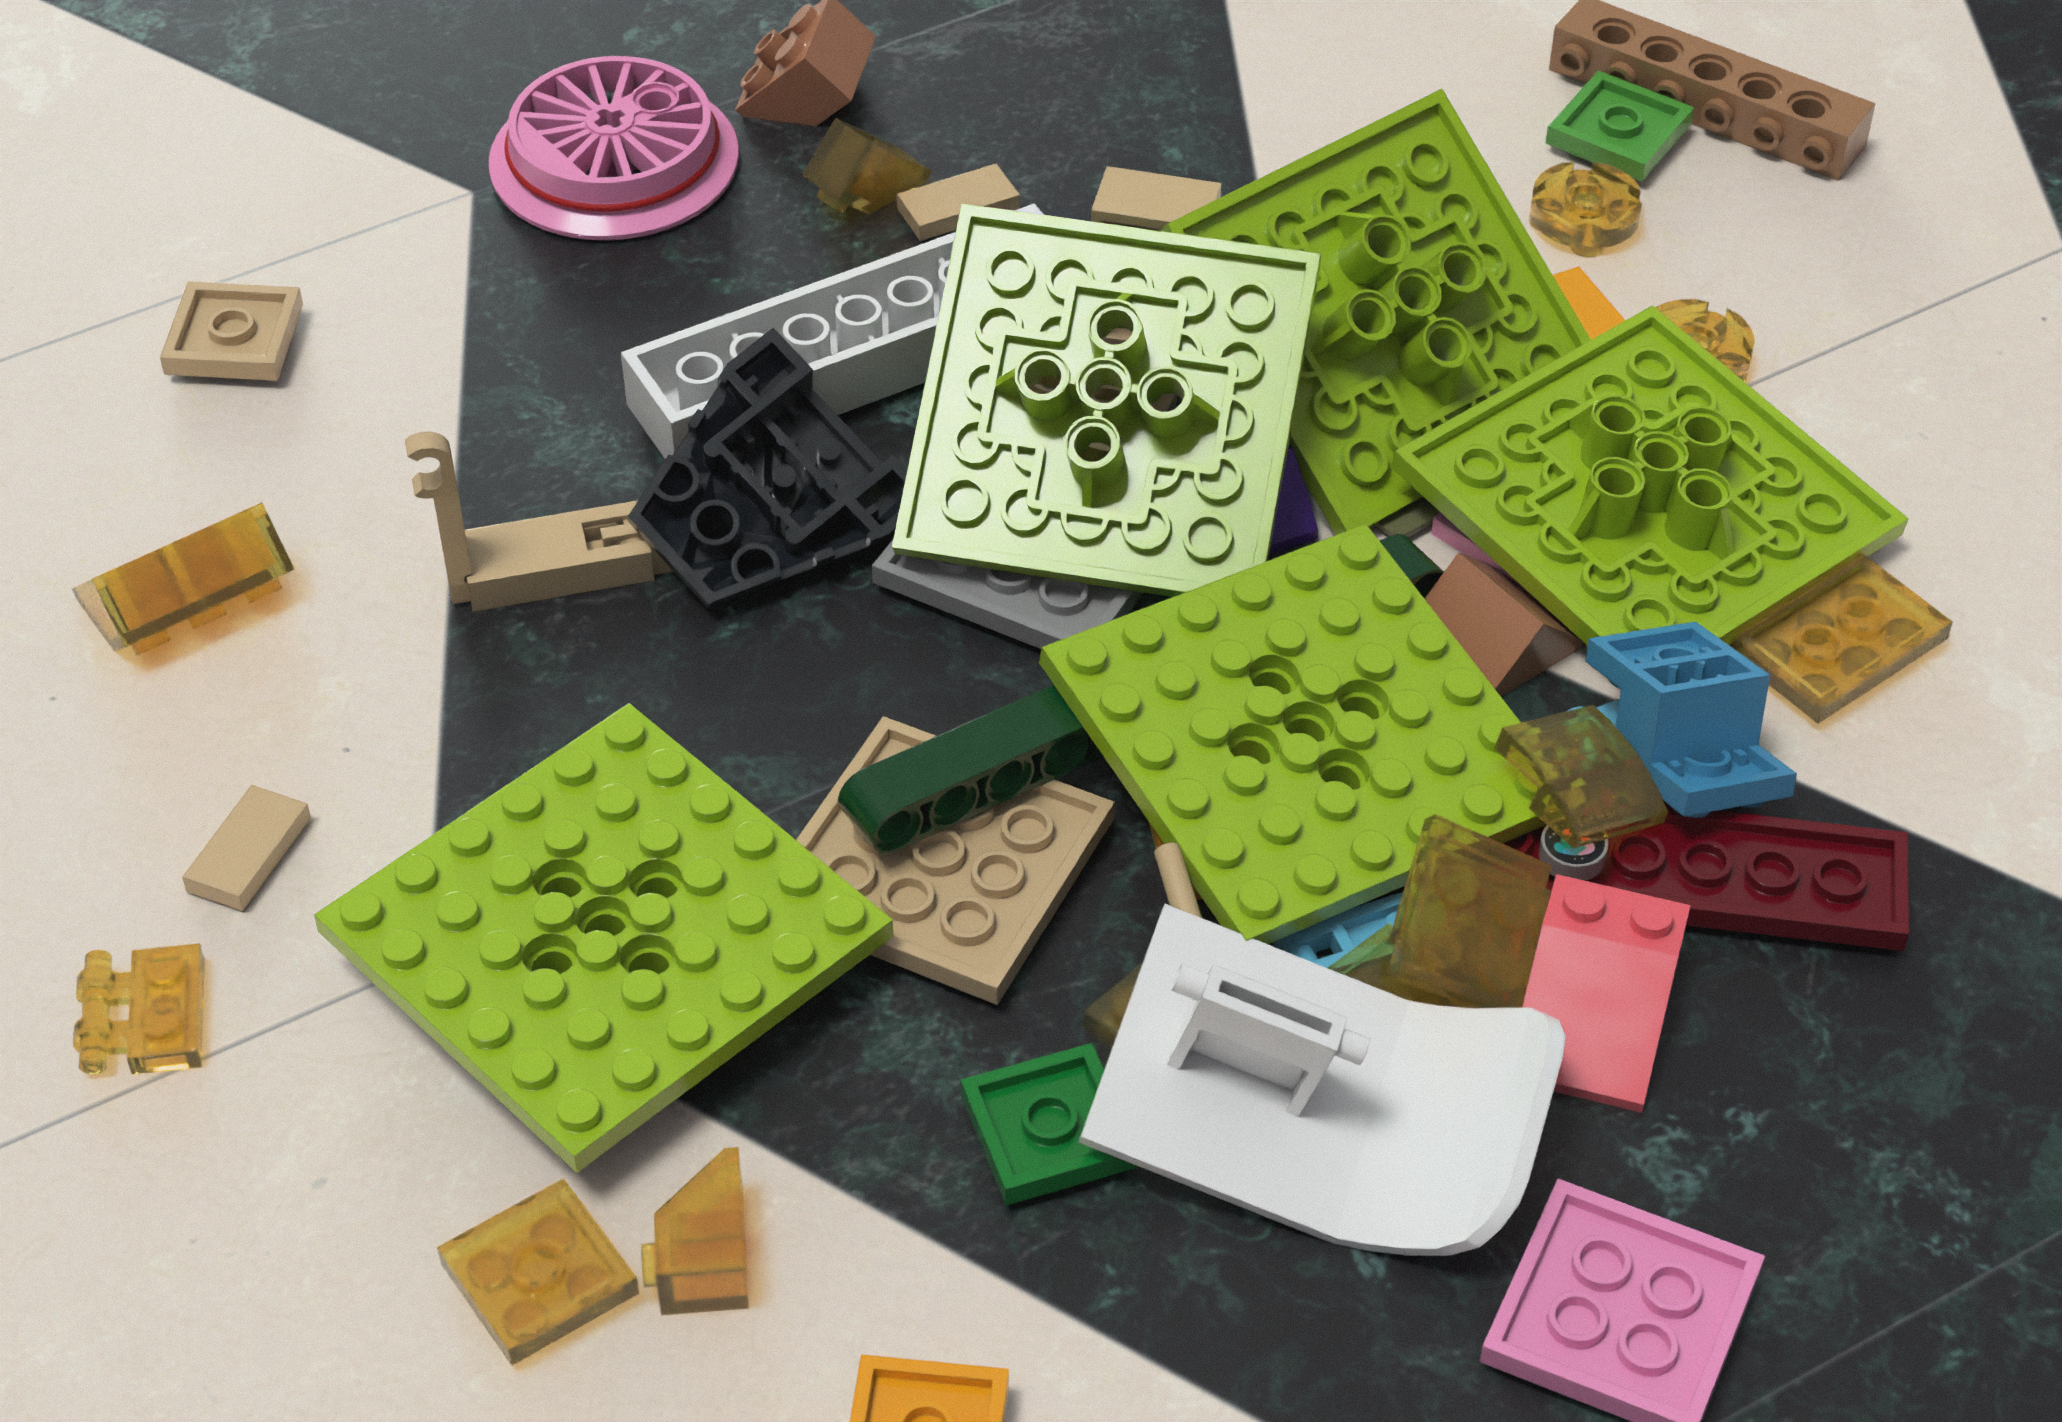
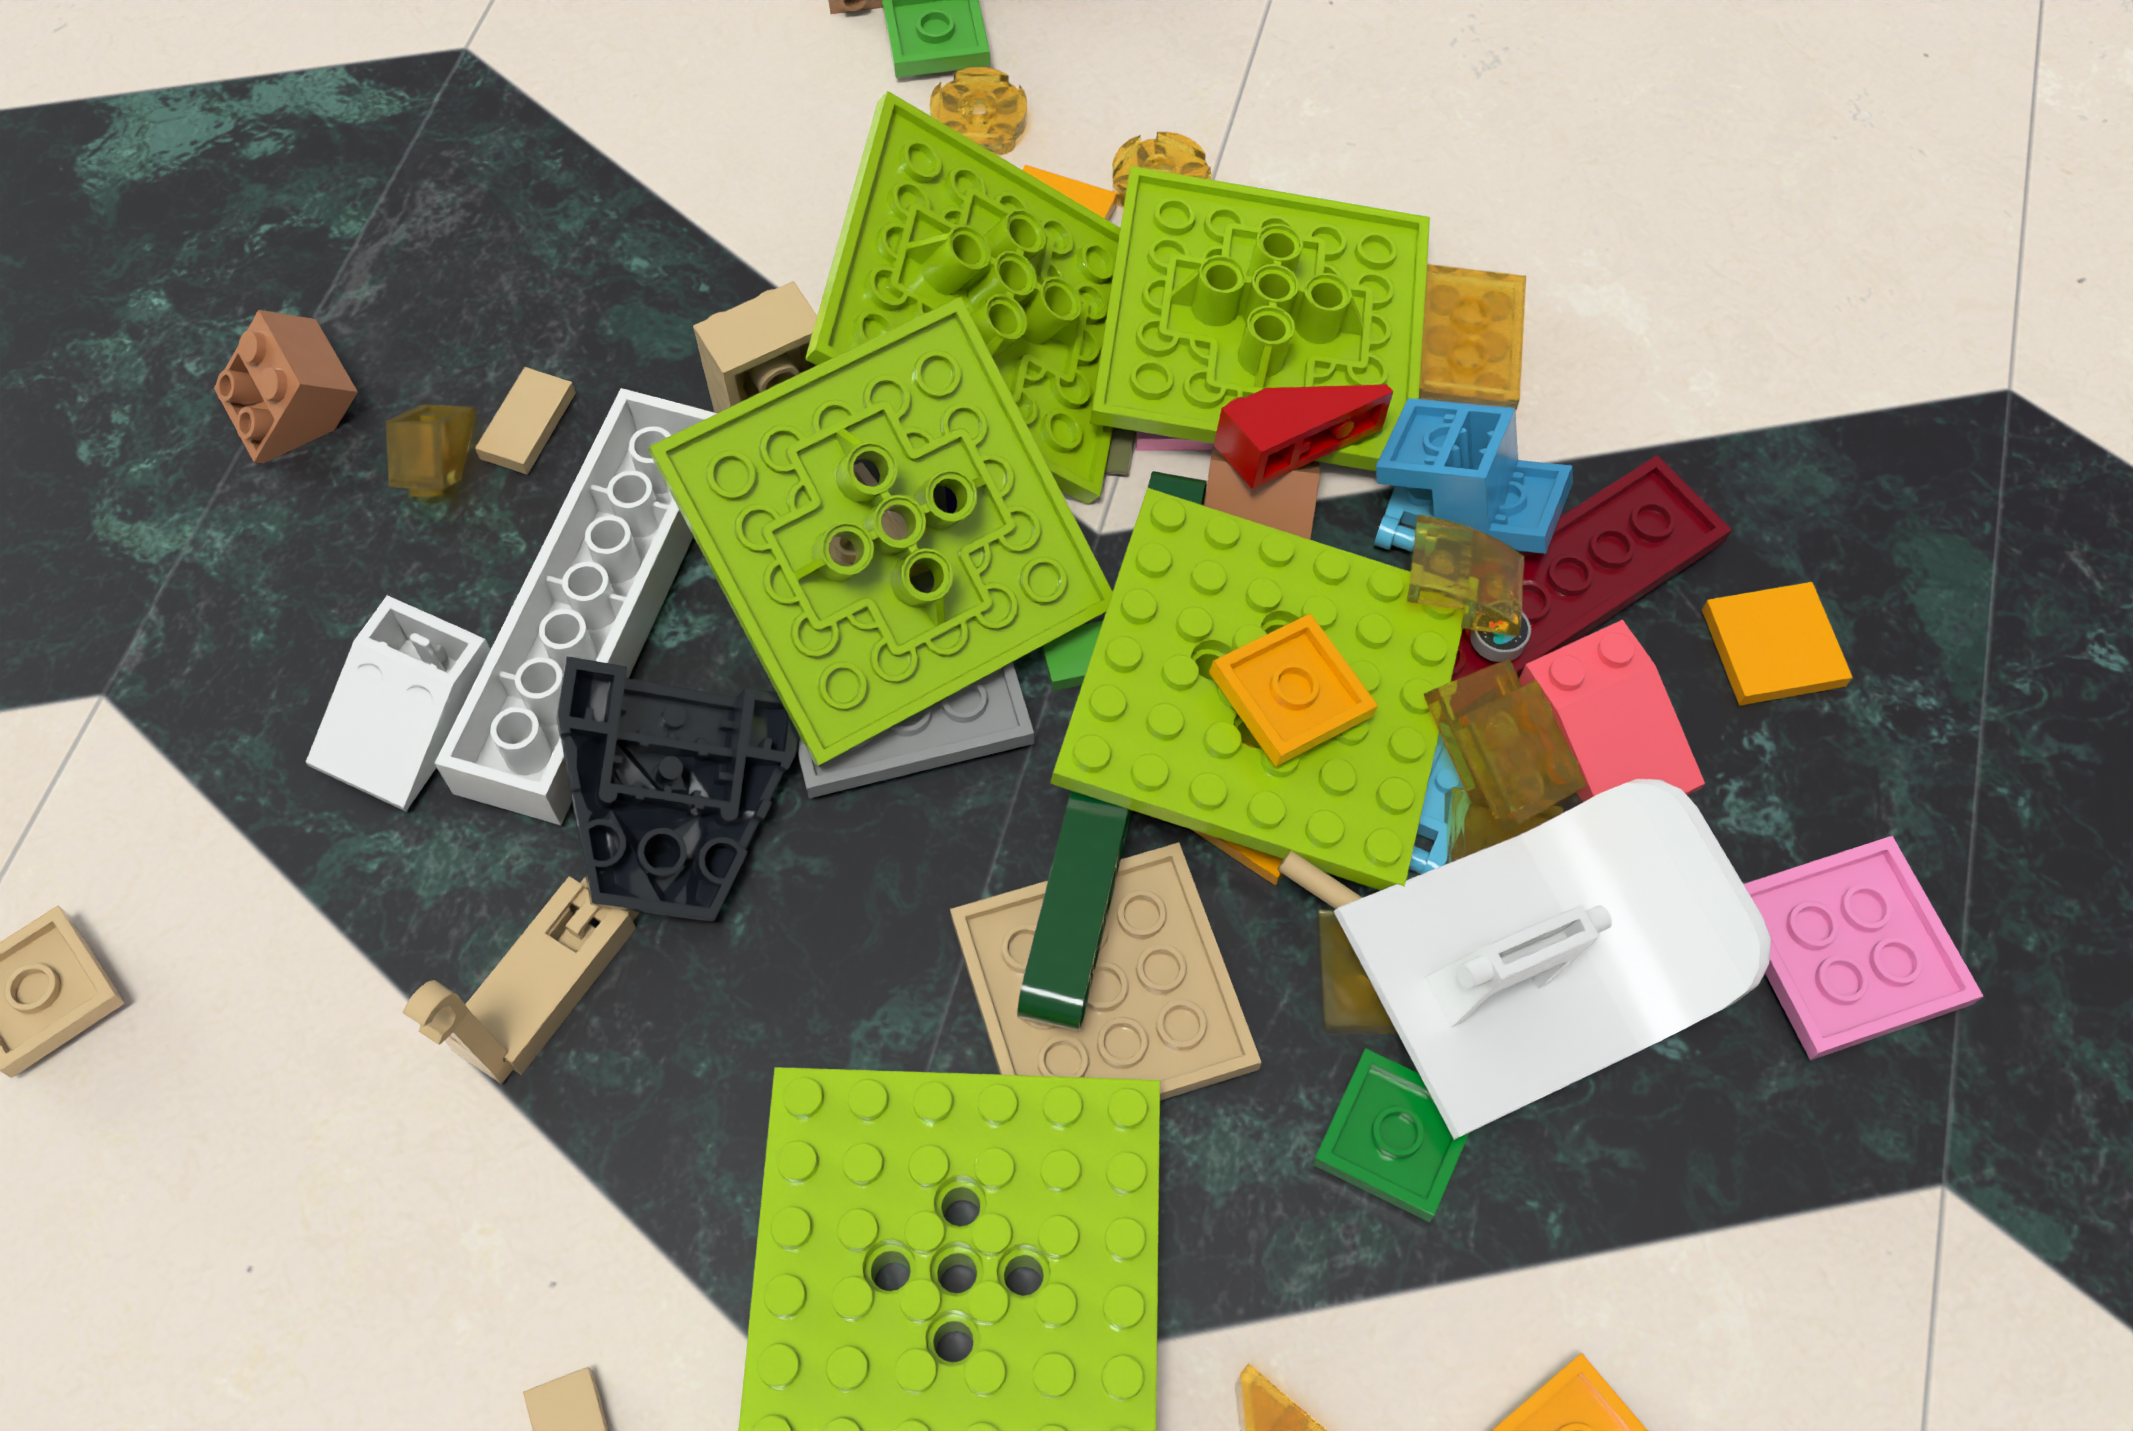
camera: 45 degrees left, 15 degrees up
(186, 581) = (255, 1259): clear yellow slope -> none
(645, 299) = (396, 702): none -> white slope
(661, 129) = (207, 537): bright pink piece -> none
(1303, 725) = (1292, 689): none -> light orange plate
(1556, 568) = (1296, 425): none -> red slope
(1852, 1057) = (1776, 643): none -> light orange tile

